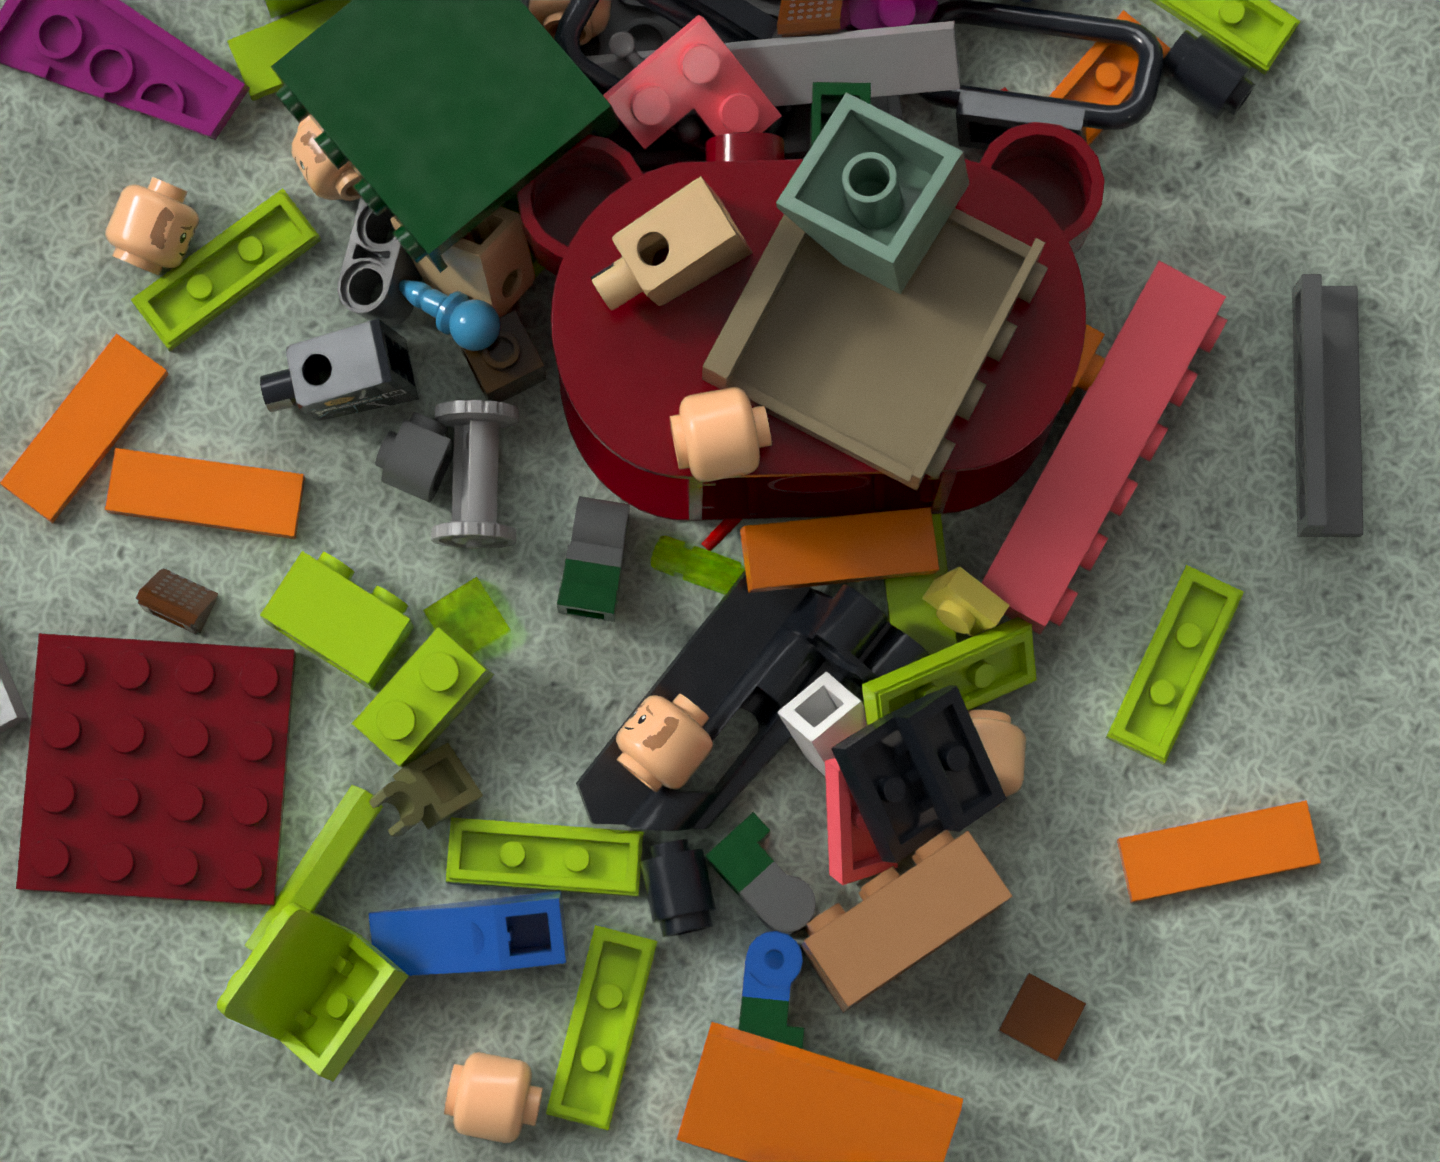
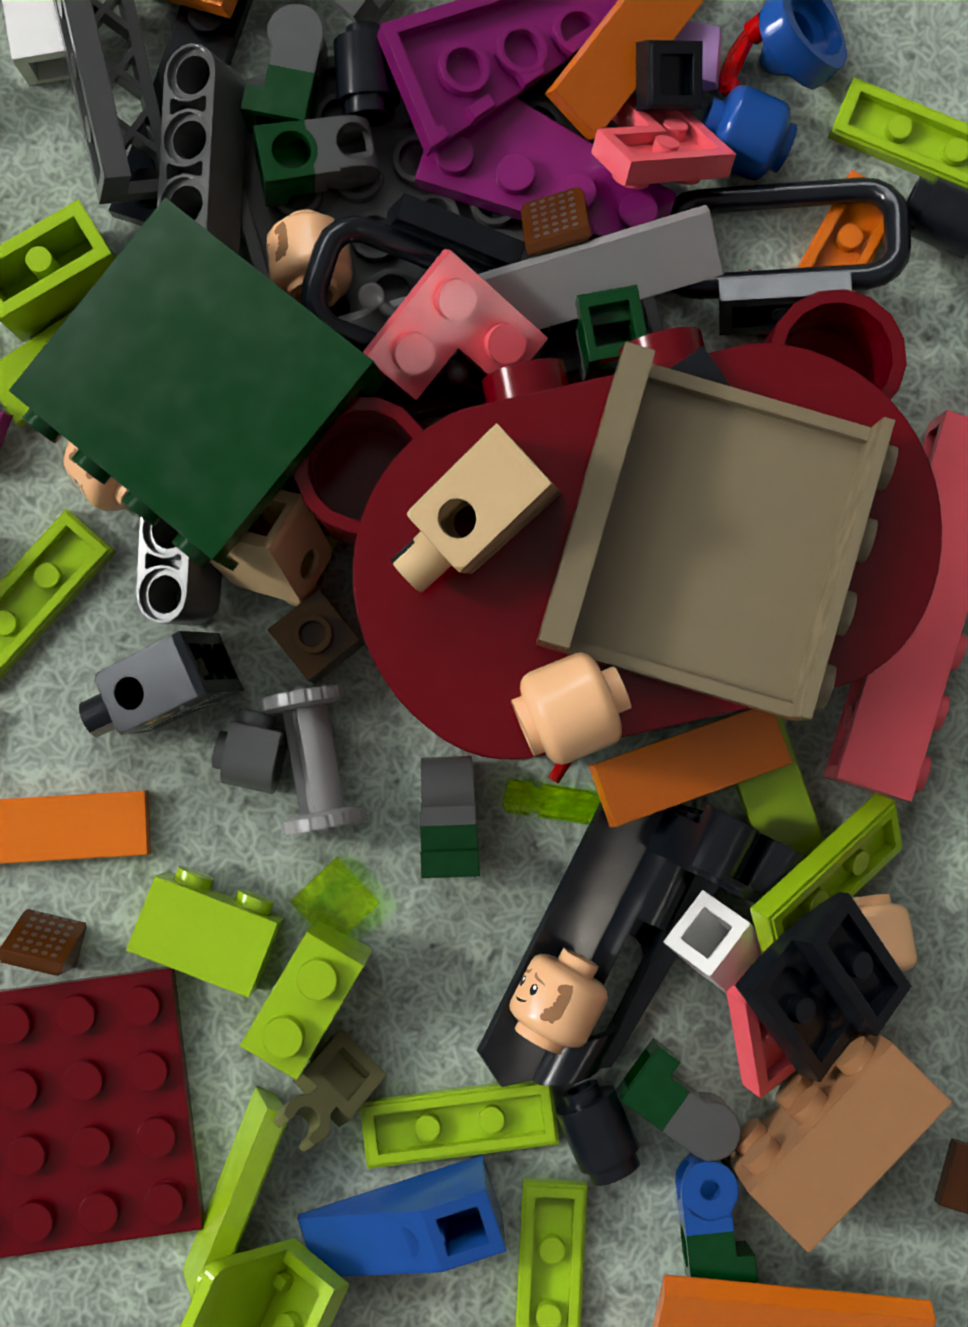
camera: 15 degrees left, 5 degrees up
(470, 322) = (275, 612): dark azure bar -> none
(875, 191) = (694, 398): sand green slope -> none
(964, 602) = (825, 792): light yellow plate -> none

